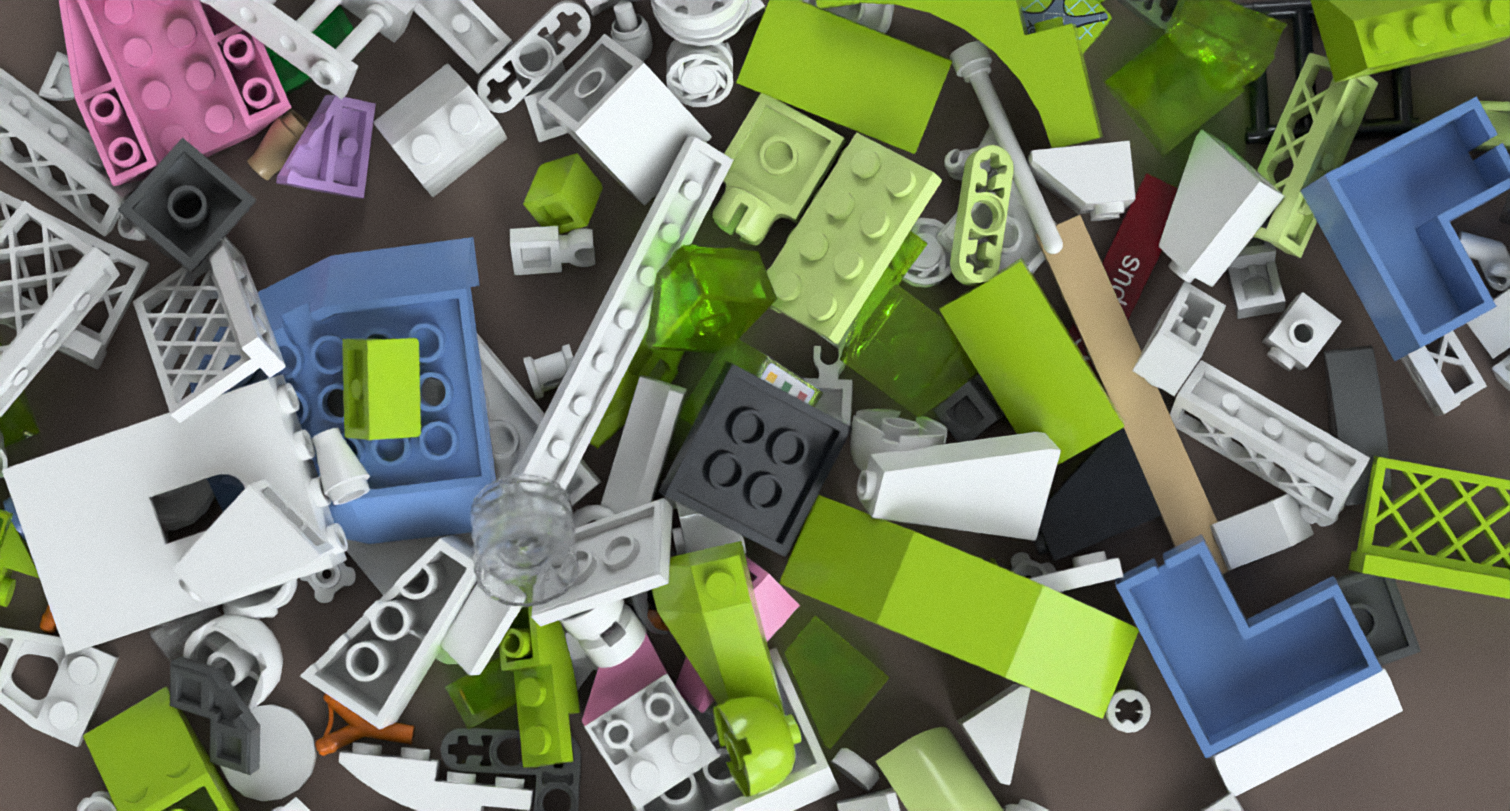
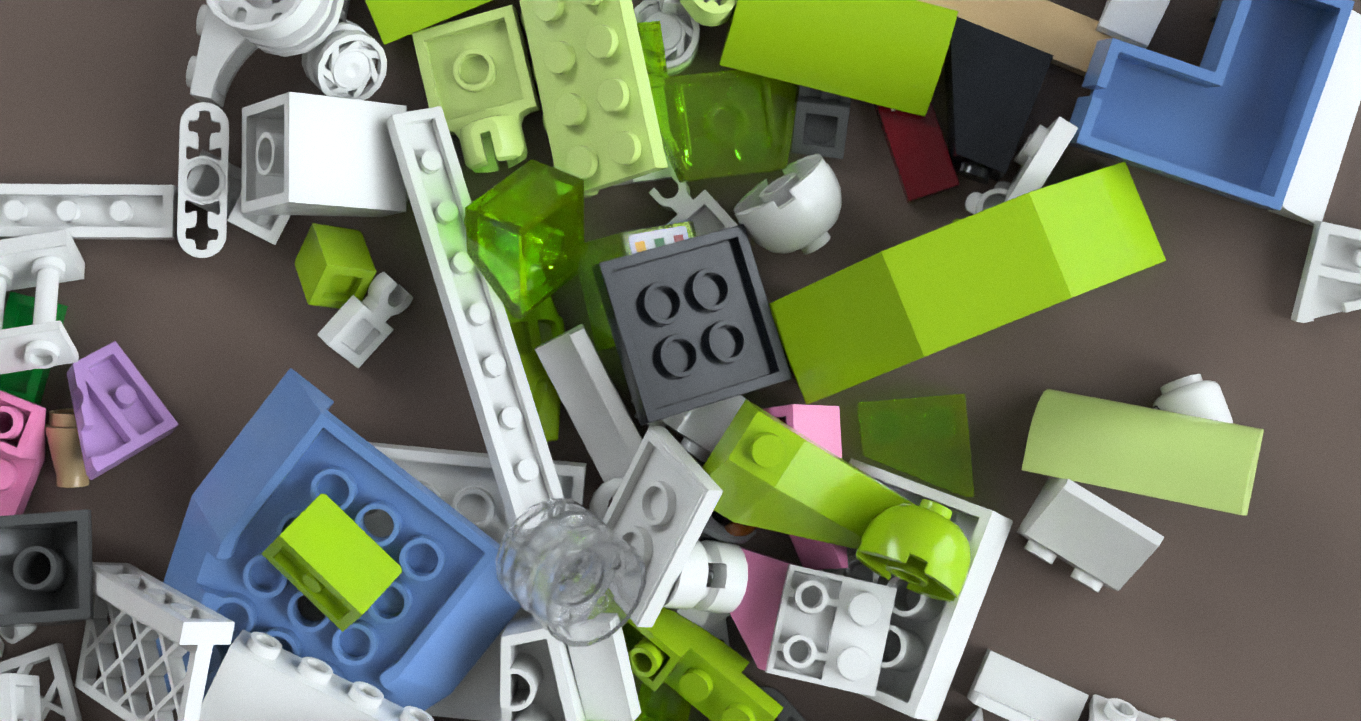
camera: 40 degrees left, 0 degrees up
(339, 468) = (362, 660): white cone -> none
(441, 129) = (188, 309): white slope -> none
(549, 370) = (458, 417): white bush -> none
(631, 31) = (258, 83): white cylinder -> none
(855, 768) = (1009, 491): white tile -> none
(966, 485) = (880, 179): white slope -> none
(997, 729) = (1093, 350): white slope -> none
(1126, 725) = (1187, 225): white bush -> none

